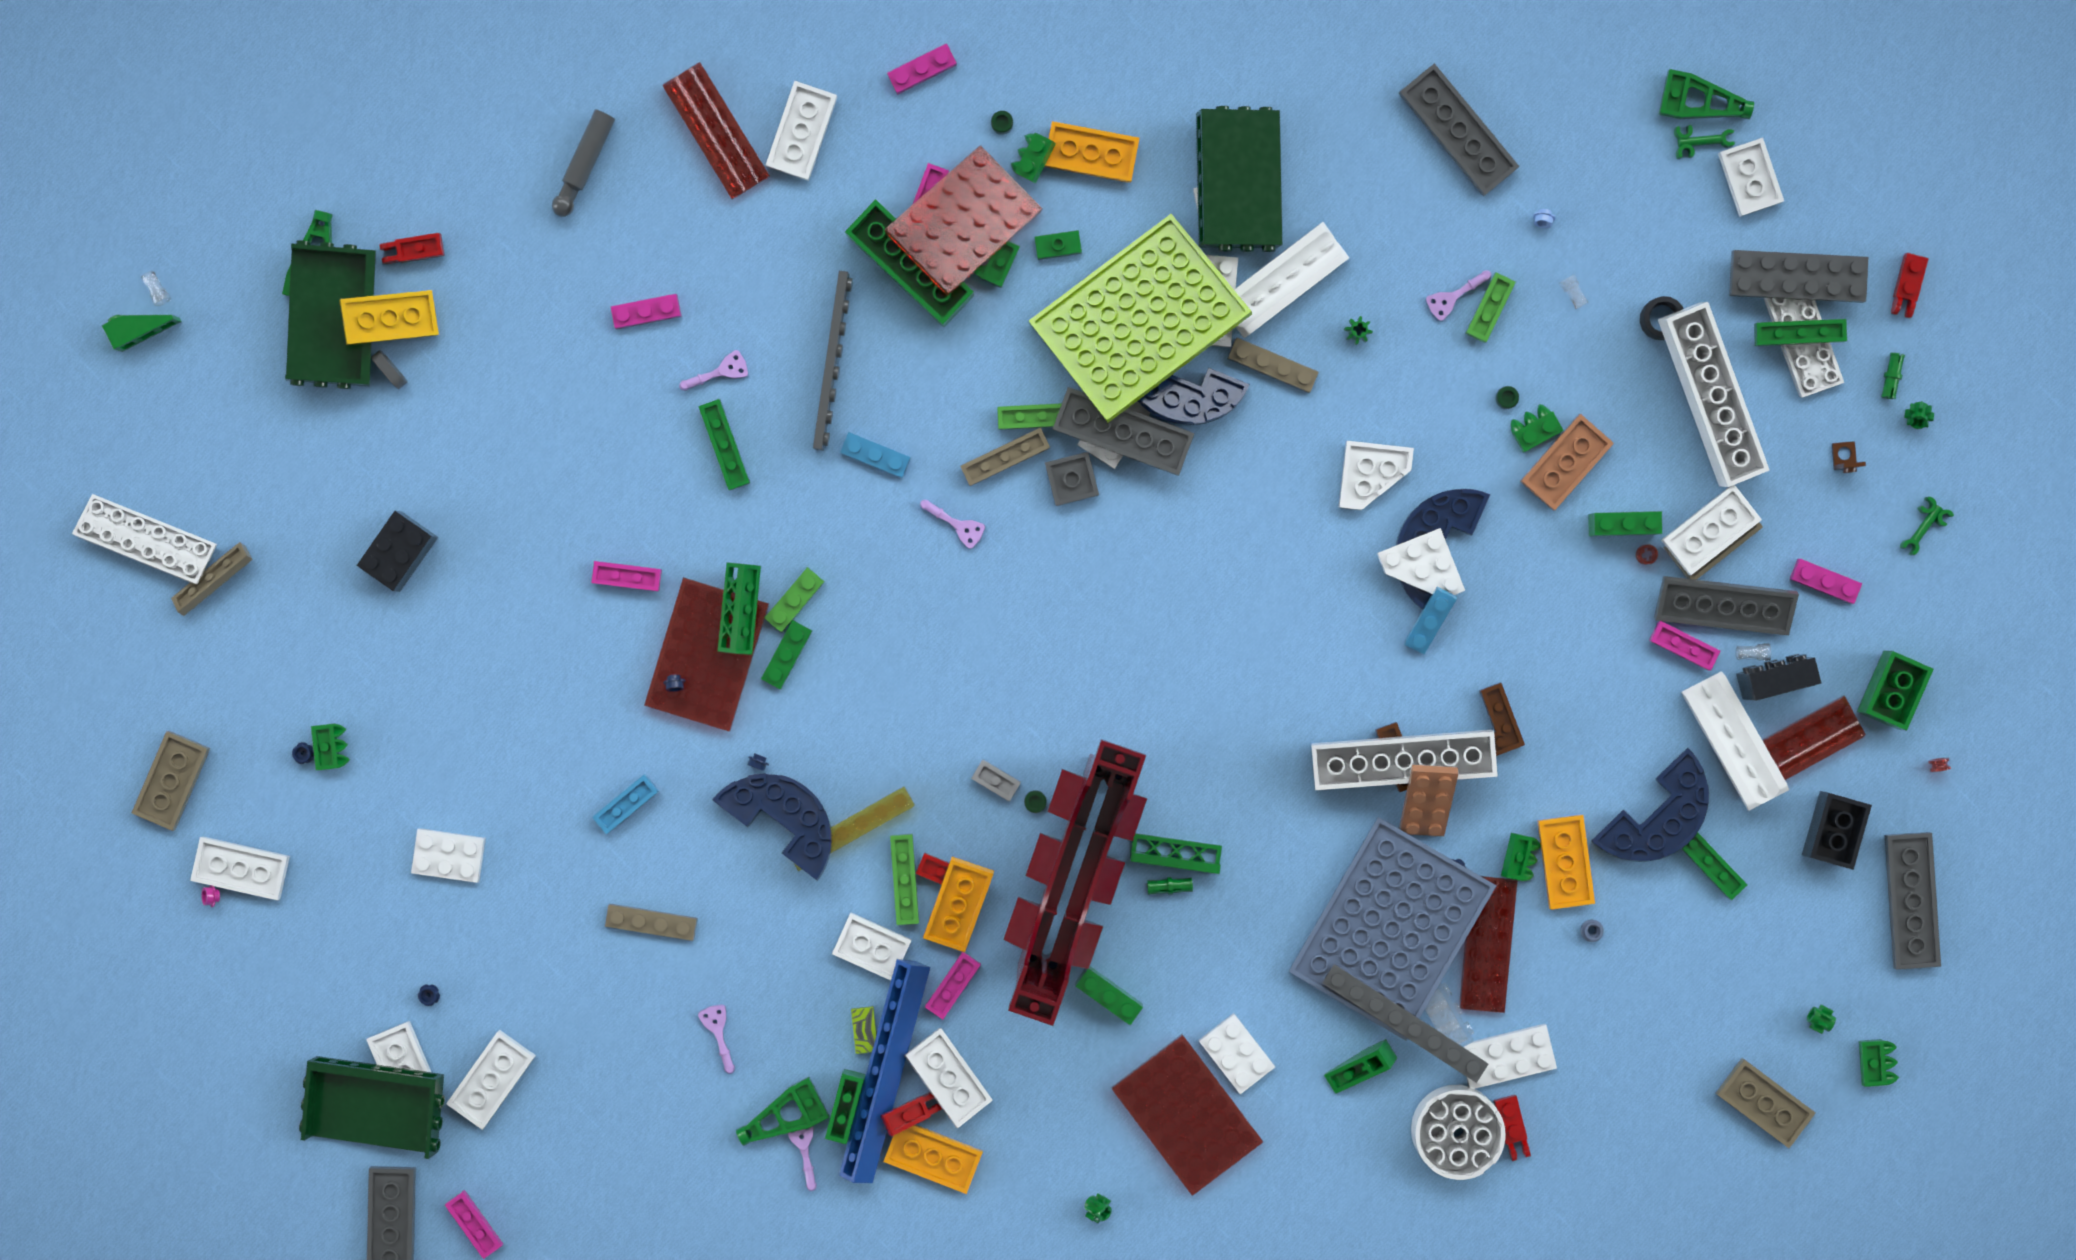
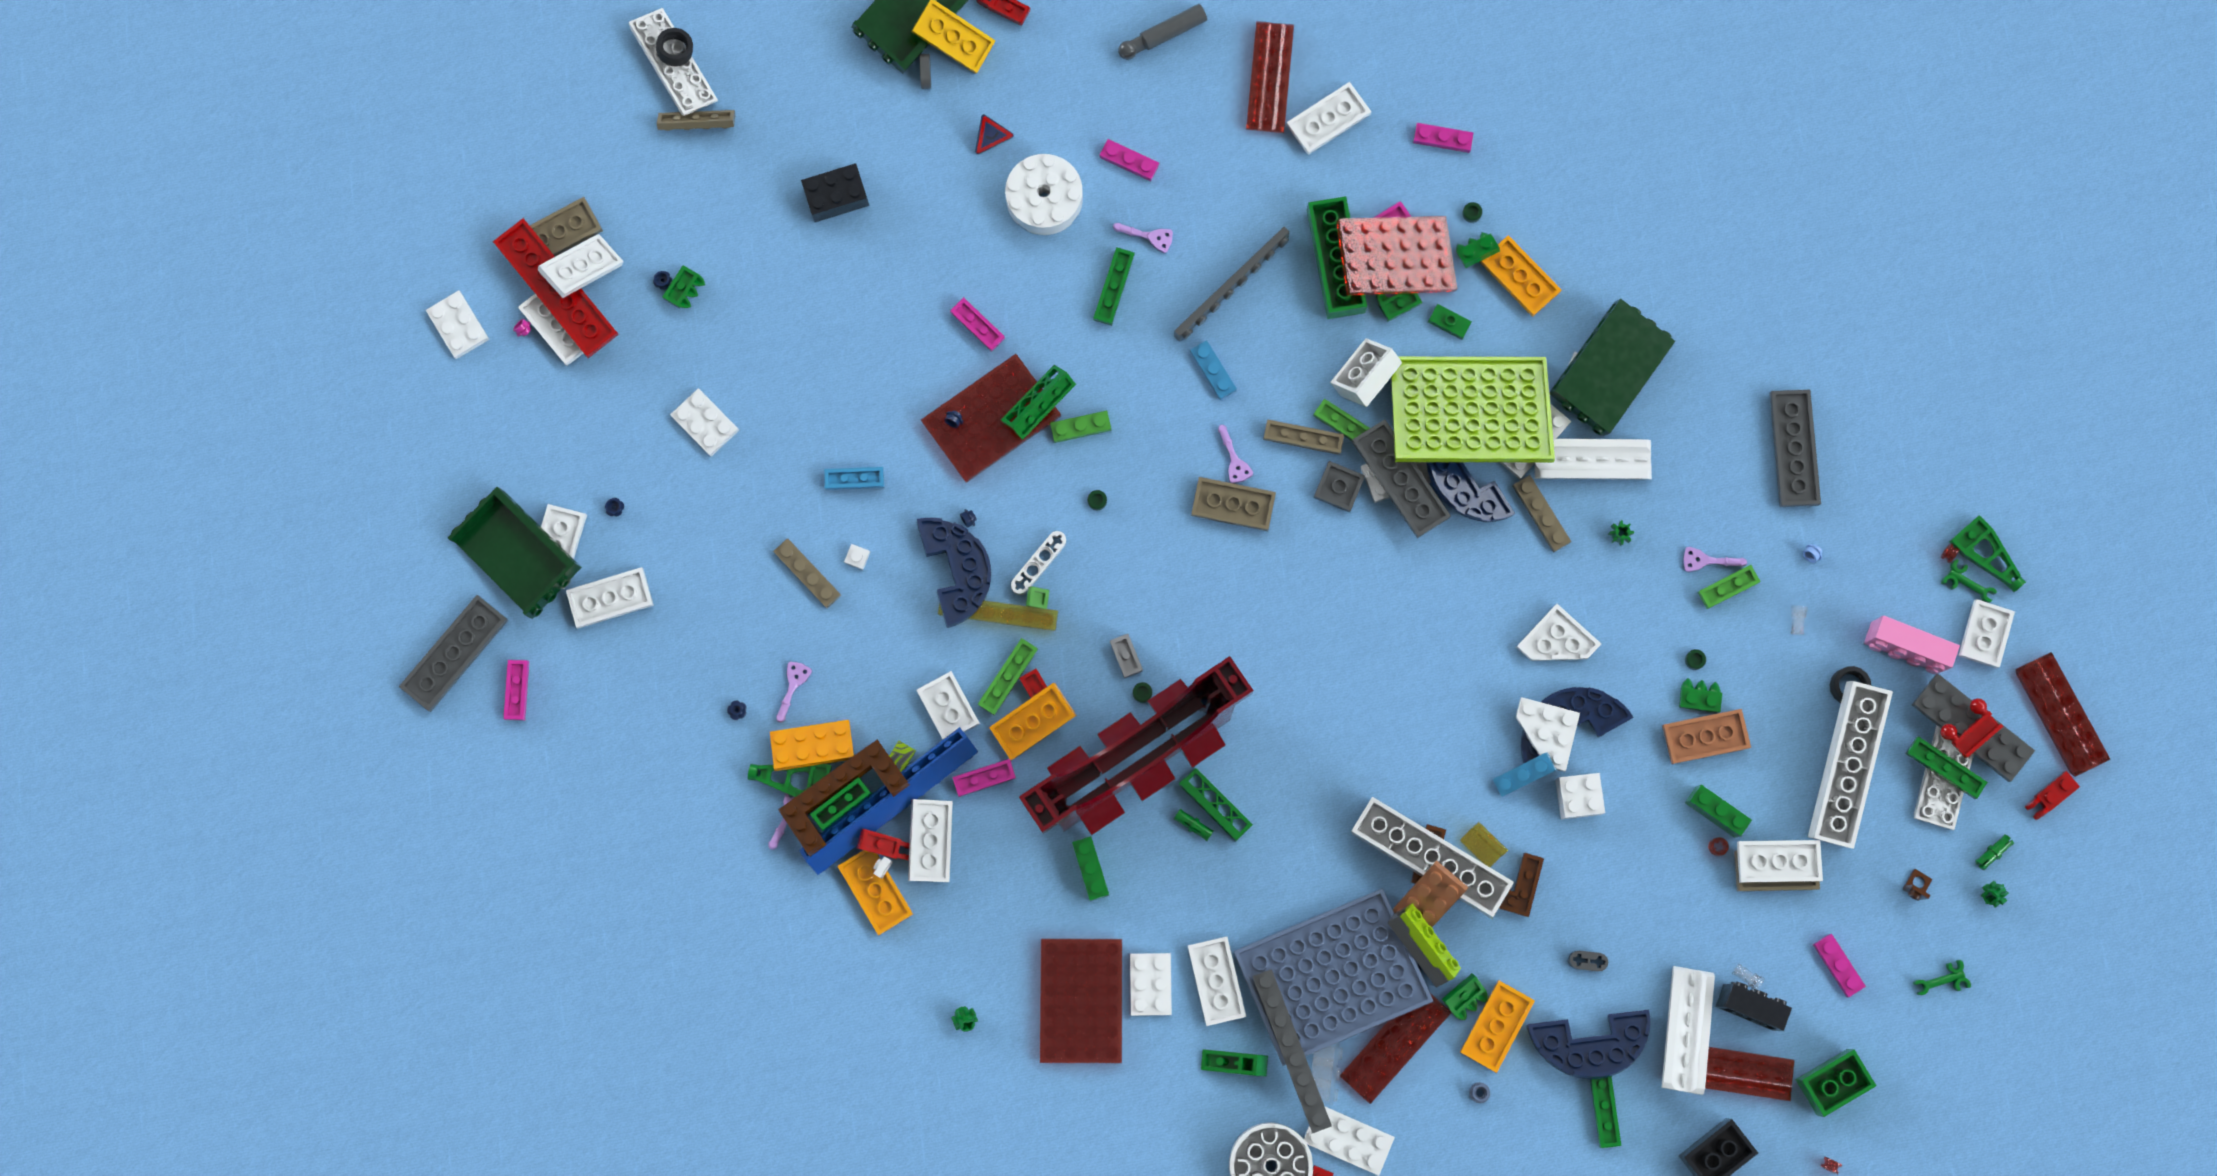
camera: 40 degrees right, 10 degrees down
(127, 511) = (678, 34): none -> black tyre
(147, 937) = (457, 324): none -> white plate
(210, 838) = (574, 312): none -> red plate
(217, 801) = (580, 265): none -> white plate
(498, 385) = (990, 134): none -> piece
(570, 400) = (1048, 175): none -> white brick
(684, 873) = (857, 557): none -> white plate
(686, 1098) = (737, 715): none -> dark blue plate
(777, 1073) = (811, 745): none -> light orange plate
(786, 654) = (1046, 459): green plate -> none
(809, 1143) = (869, 758): none -> reddish brown plate
(852, 755) = (1040, 564): none -> white beam
(861, 656) = (1097, 500): none -> dark green tile
(876, 788) = (1037, 597): none -> bright green plate
(923, 1134) = (882, 867): none -> white plate
(987, 567) = (1233, 504): none -> dark tan plate
(1018, 355) = (1366, 372): none -> white brick
(1292, 1008) = (1216, 981): none -> white plate
(1438, 710) = (1483, 844): none -> clear yellow panel
(1452, 842) = (1424, 945): none -> lime piece
(1493, 602) = (1580, 796): none -> white brick
(1607, 747) = (1588, 966): none -> dark grey beam
(1667, 125) = (1950, 553): none -> clear red bush
(1684, 645) = (1699, 933): dark pink plate -> none
(1692, 240) = (1911, 645): none -> bright pink brick
(1726, 605) = (1751, 926): dark grey plate -> none
(1808, 282) = (1976, 734): none -> red gear
(1868, 202) = (2062, 714): none -> clear red plate

